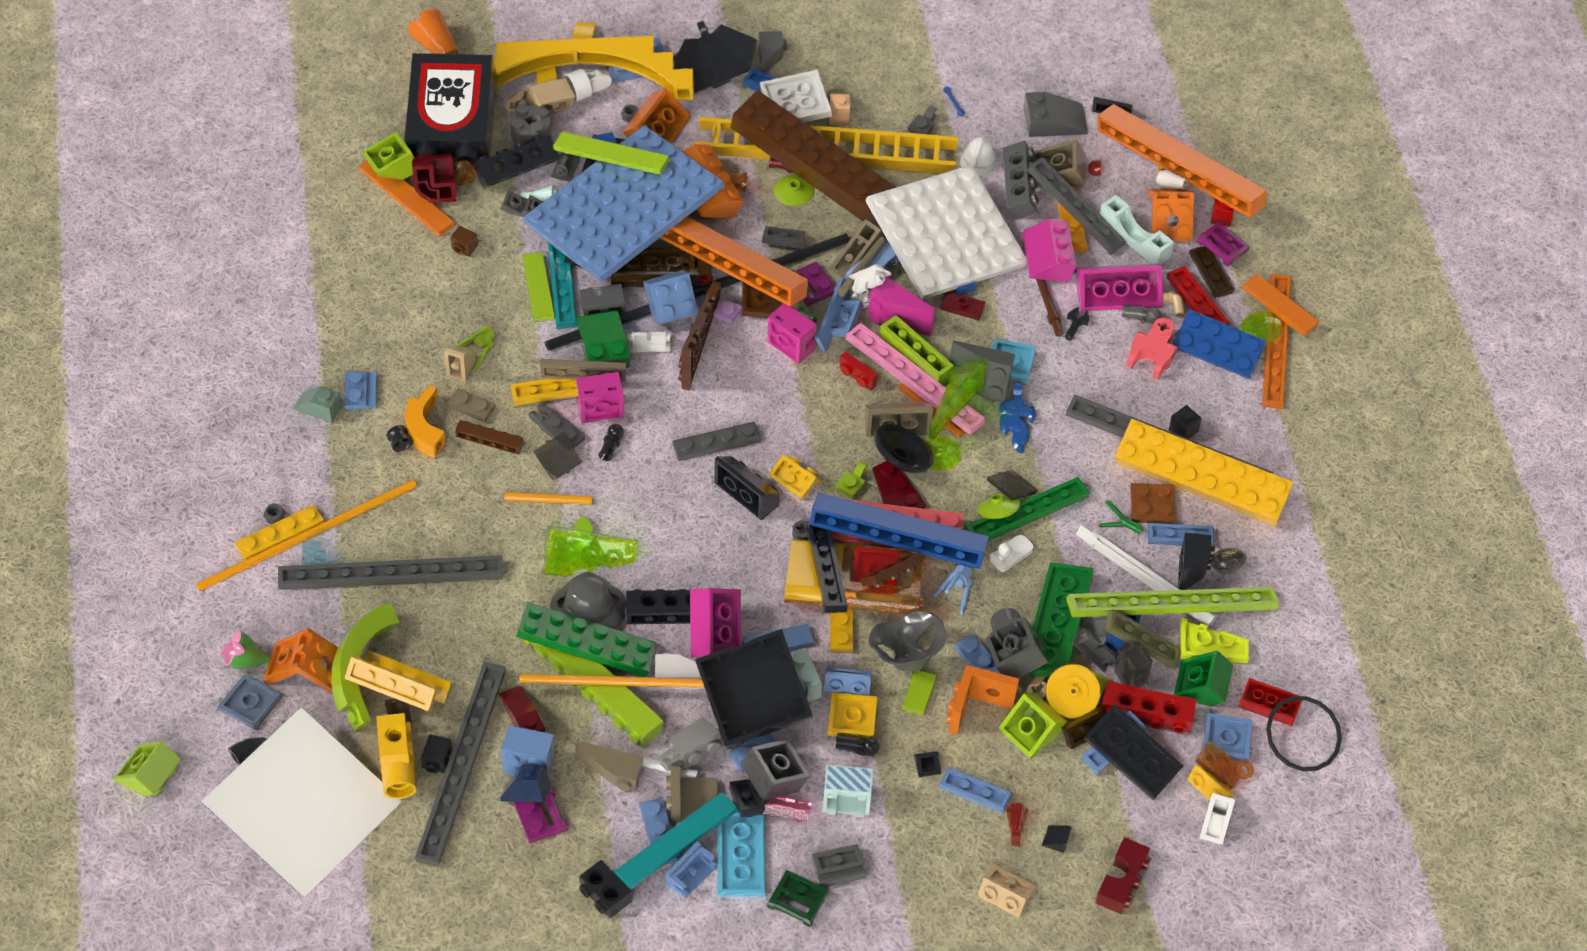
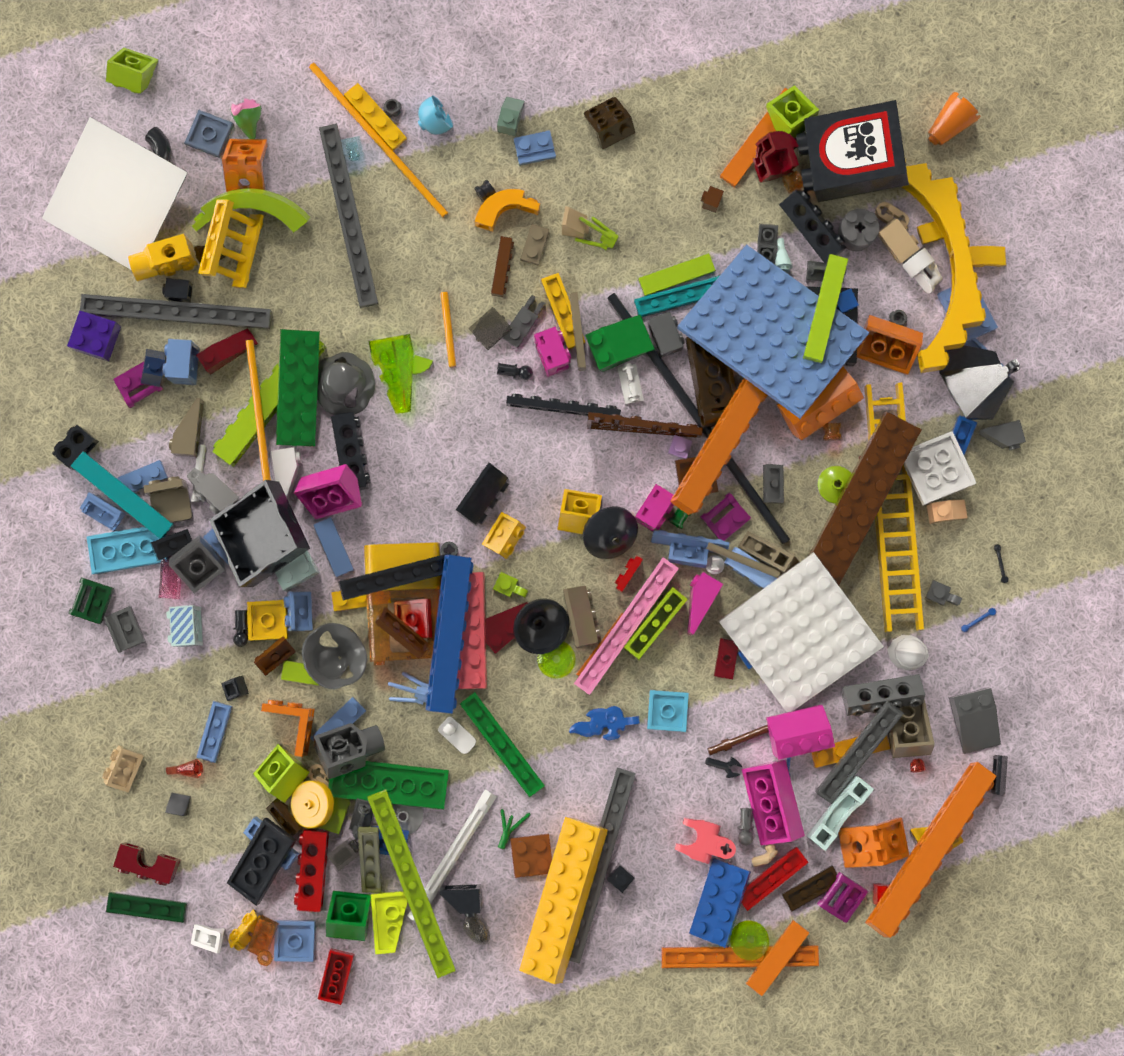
camera: 80 degrees right, 30 degrees up
(299, 470) = (433, 117): none -> medium azure cylinder
(350, 314) = (610, 122): none -> dark brown bracket
(471, 849) = (94, 336): none -> dark purple brick
(660, 408) = (555, 405): none -> black plate
(670, 297) = (674, 393): medium blue brick -> none
(716, 441) = (533, 461): dark grey plate -> none
(783, 404) = (577, 509): none -> yellow slope
(811, 374) = (607, 525): none -> black dish
(869, 278) = (719, 569): white hinge -> none
(883, 75) = (1004, 579): none -> black hinge
(897, 712) = (274, 656): none -> reddish brown plate
(962, 388) = (610, 668): clear neon green wedge -> none
(997, 507) = (495, 723): lime dish -> none
(998, 367) = (642, 686): dark grey slope -> none
(1012, 485) = (526, 727): clear smoke piece -> none
(1170, 180) = (907, 841): white cone -> none
(1174, 533) = (502, 883): medium blue tile -> none
(1174, 888) = (146, 907): none -> dark green tile
(1325, 708) = (285, 1025): black piece -> none

